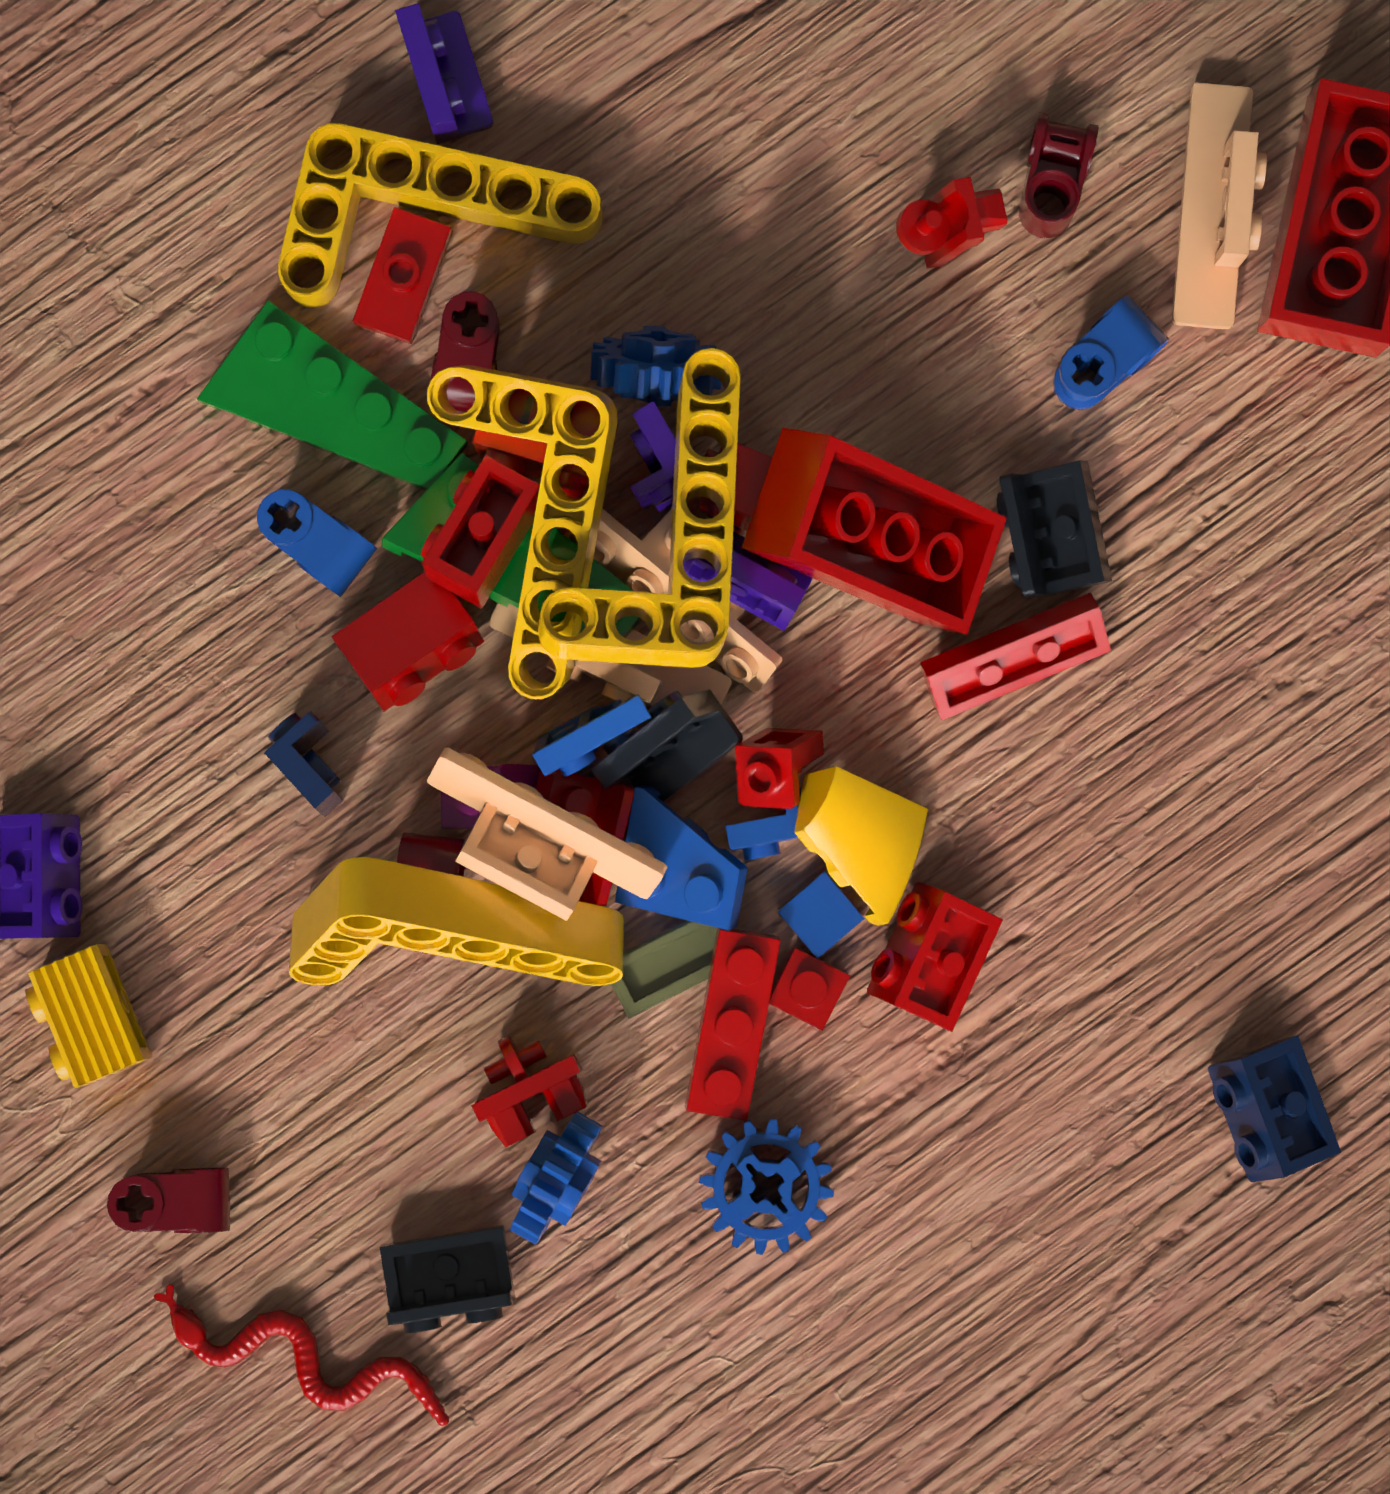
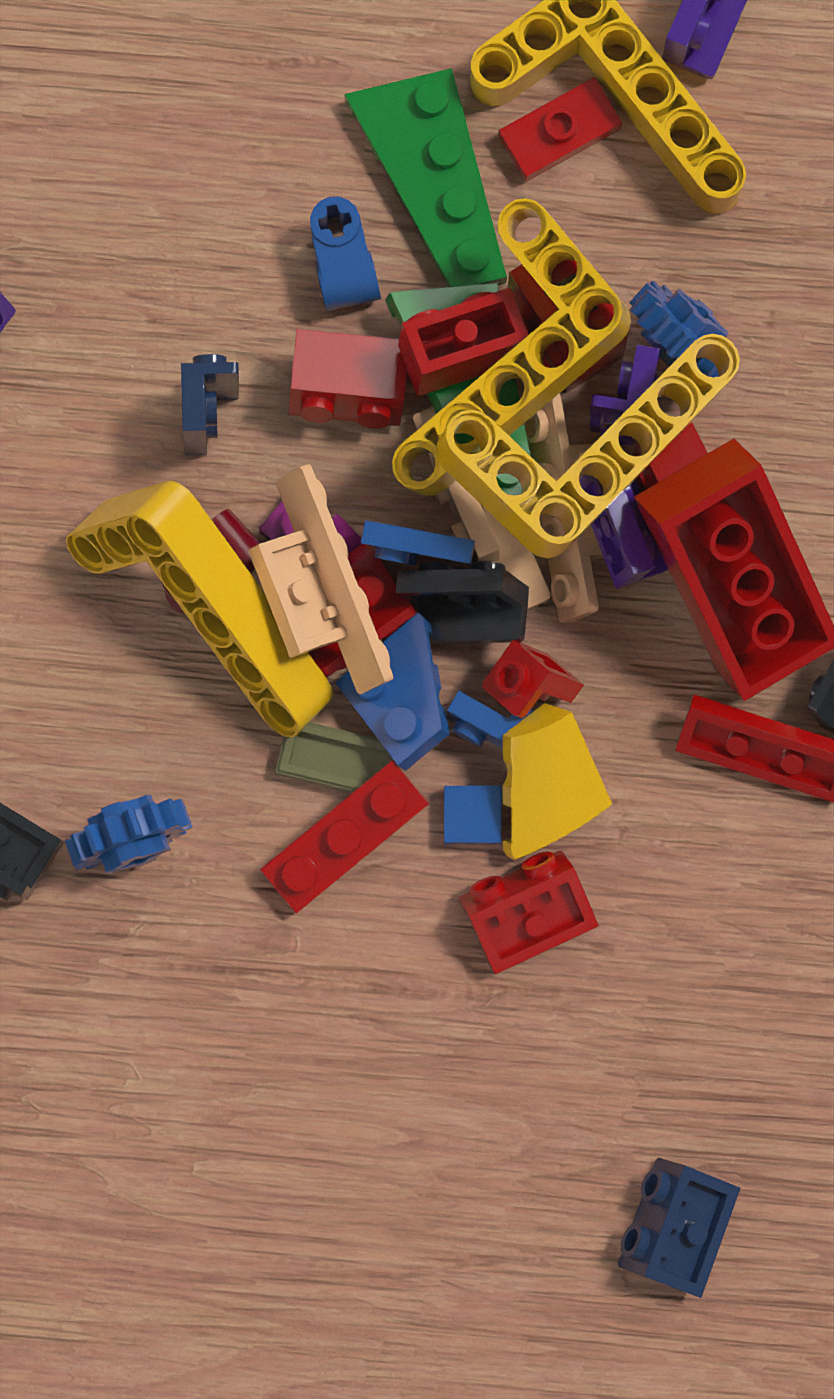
camera: 35 degrees right, 5 degrees down
(458, 350) = (556, 201): dark red piece -> none
(505, 1107) = (136, 757): red hips -> none
(744, 1204) = (244, 969): blue gear -> none
(808, 989) = (419, 859): red plate -> none

